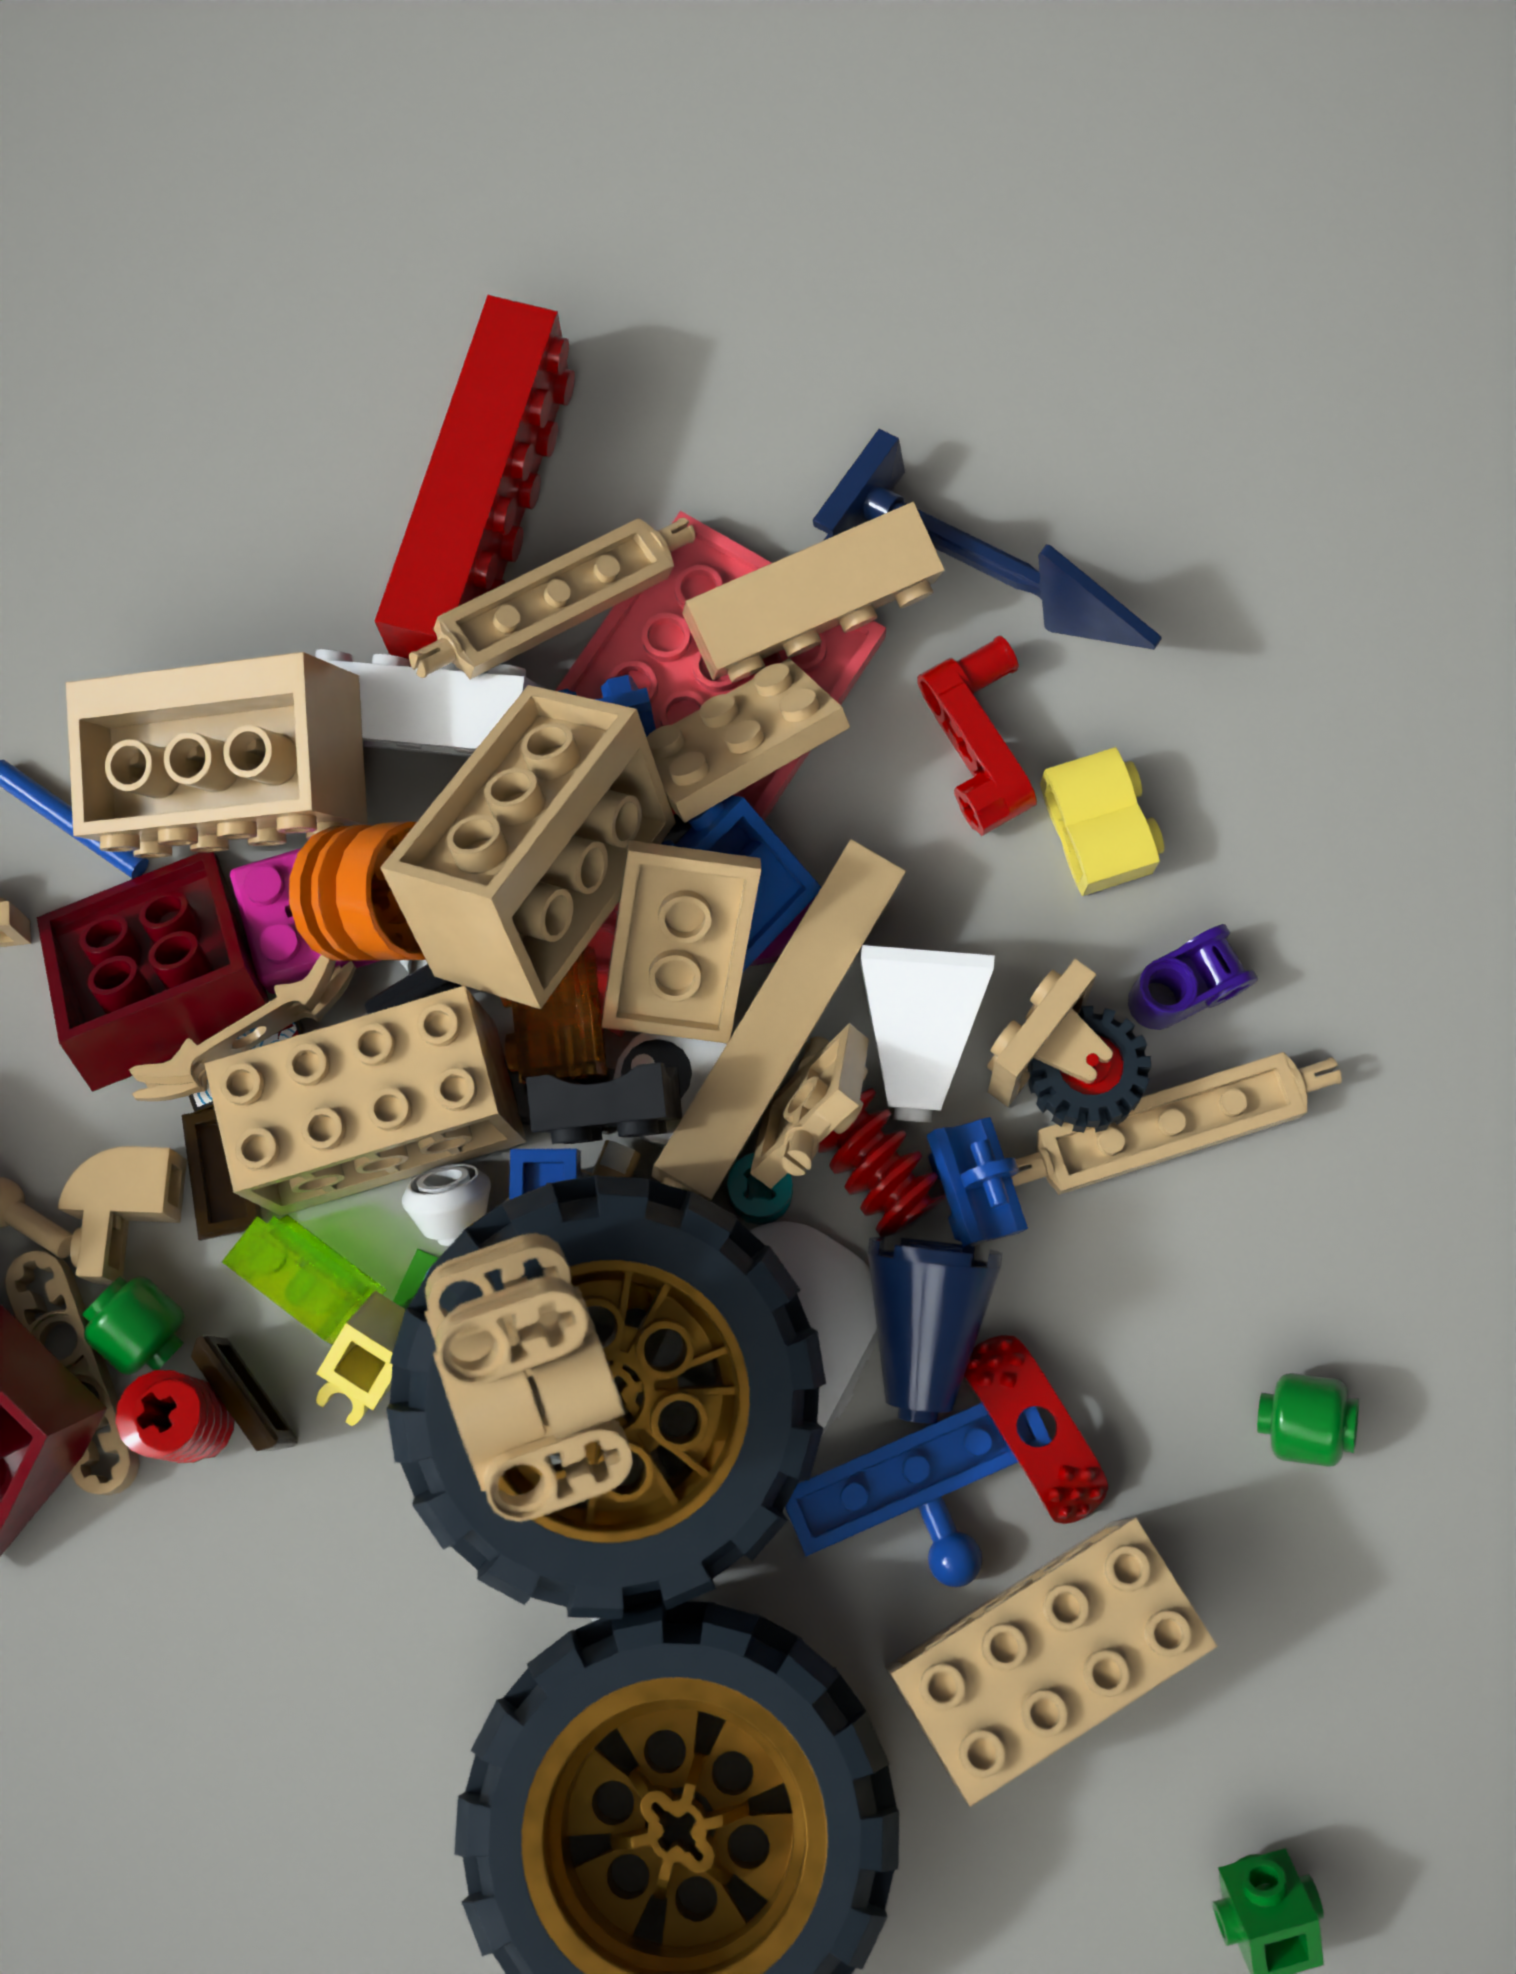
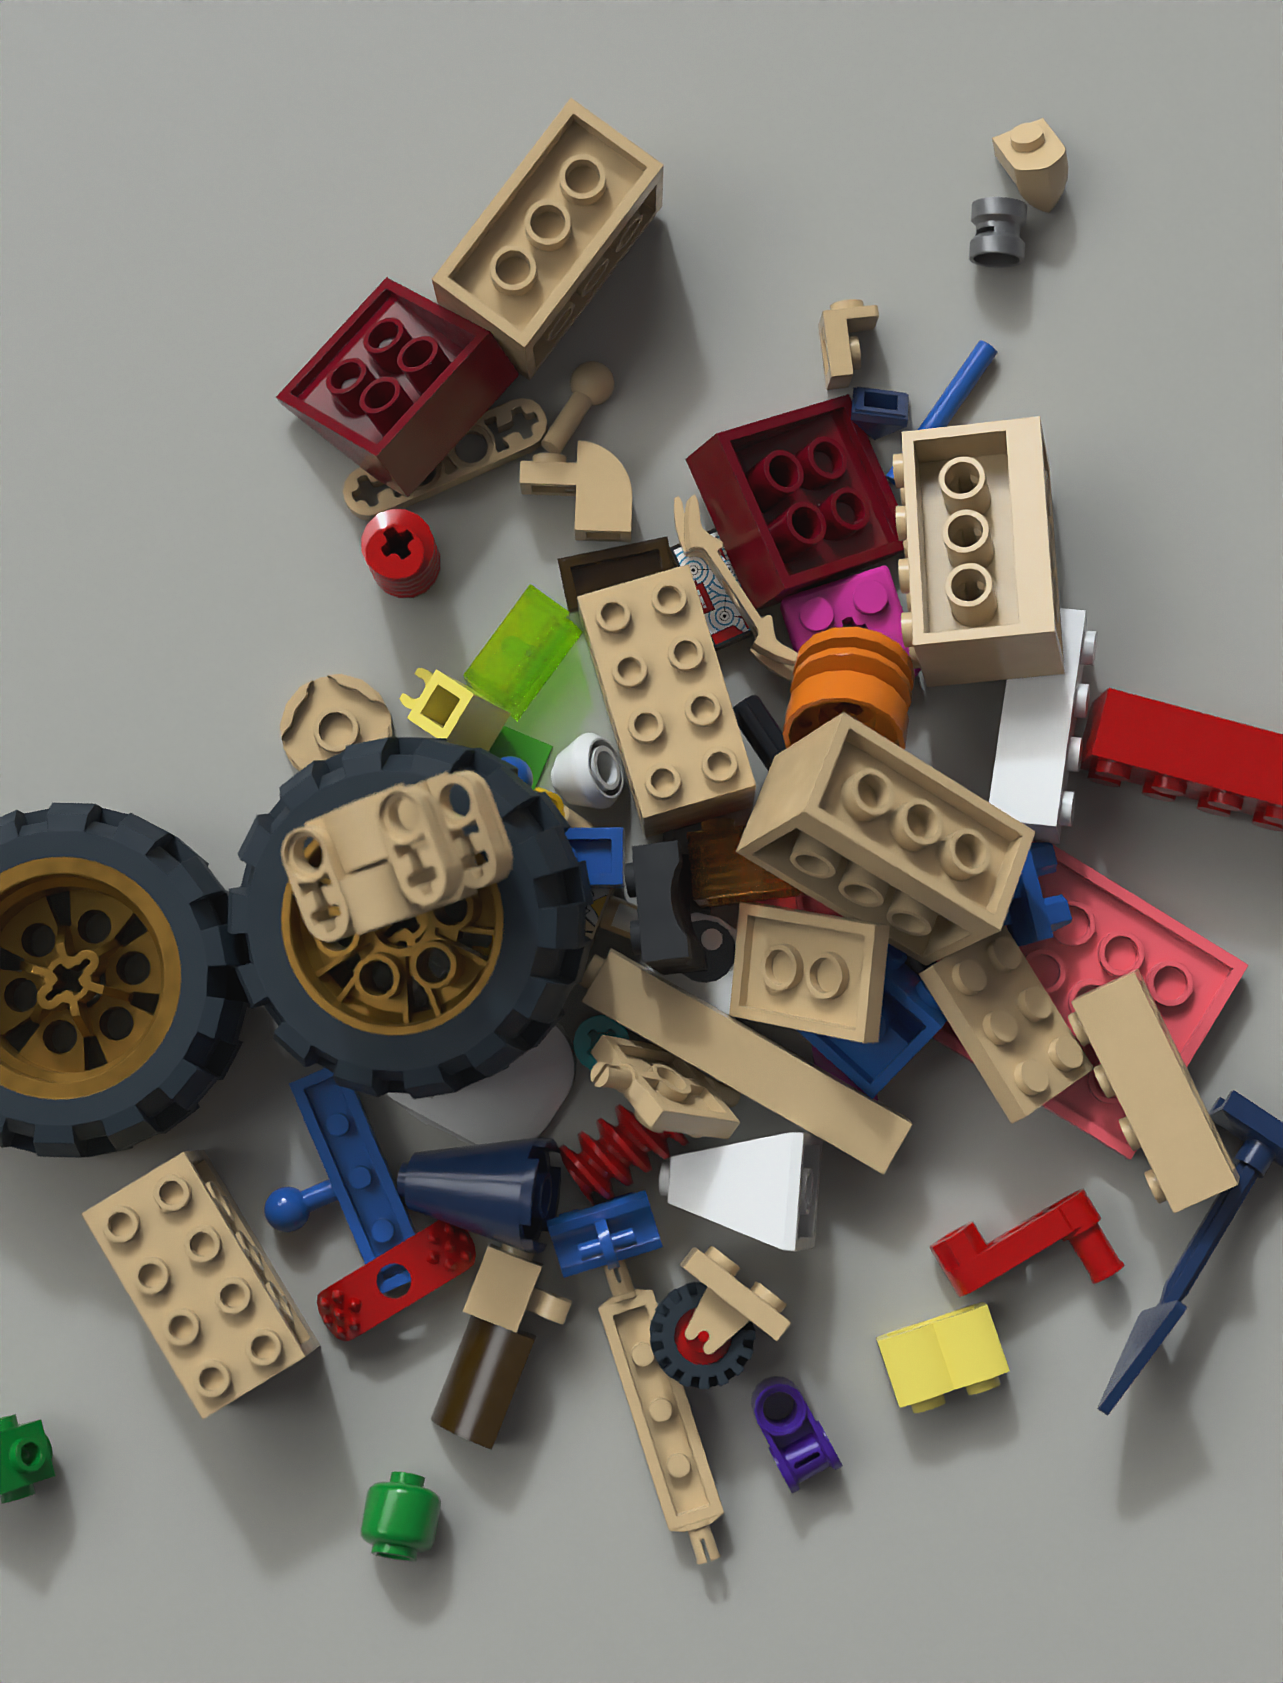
camera: 85 degrees right, 10 degrees up
(58, 881) = (879, 411): none -> dark blue slope
(134, 1325) = (482, 510): green head -> none
(242, 1394) = (424, 605): dark brown tile -> none
(371, 1510) = (331, 715): none -> tan tile
(552, 598) = (1140, 851): tan plate -> none
(1041, 1294) = (507, 1289): none -> tan brick
(1147, 1324) = (482, 1381): none -> dark brown brick

